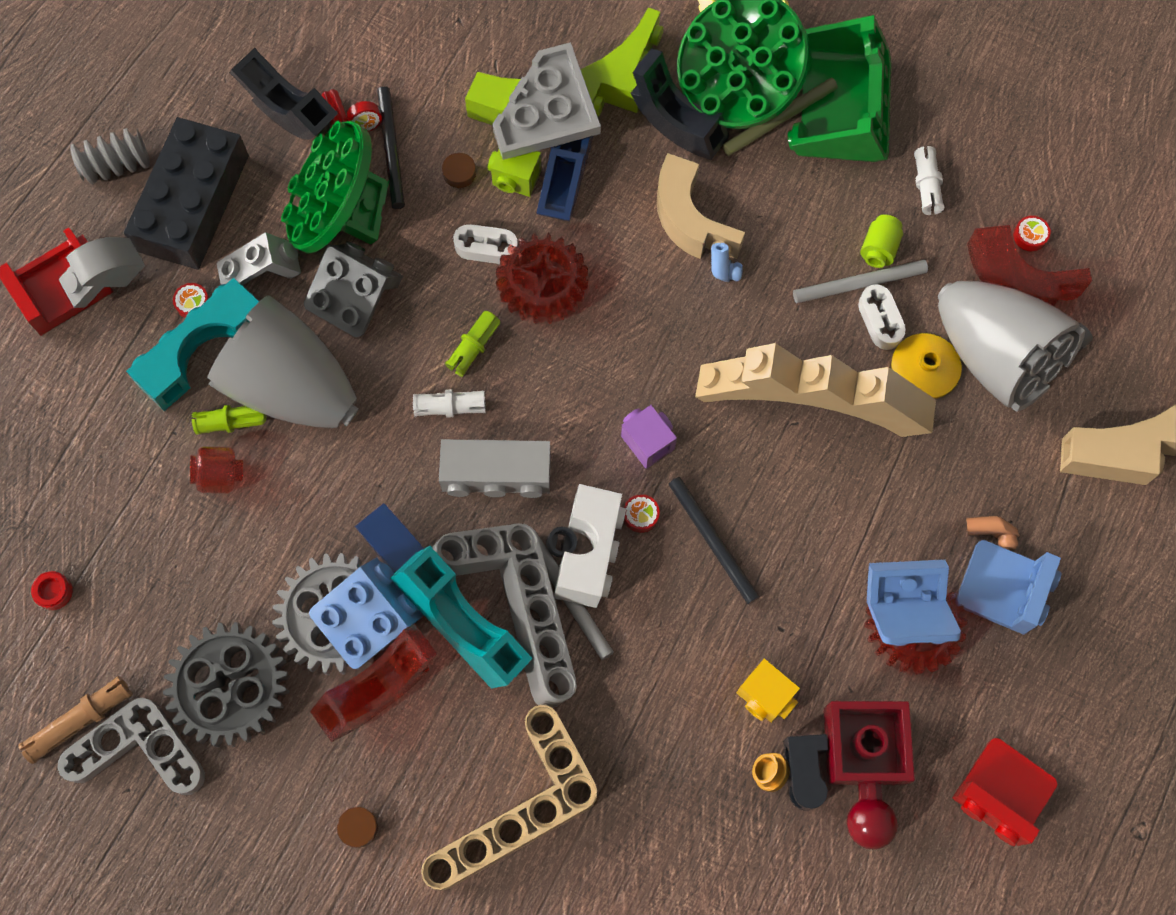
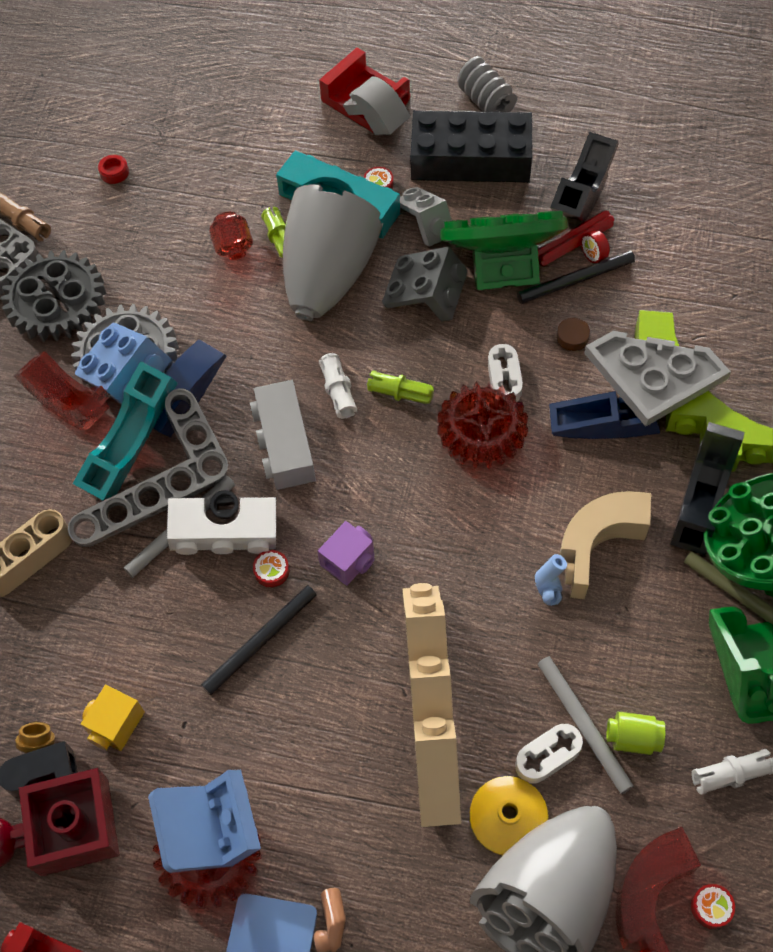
camera: 80 degrees right, 10 degrees down
(515, 173) = (584, 376): lime brick -> none

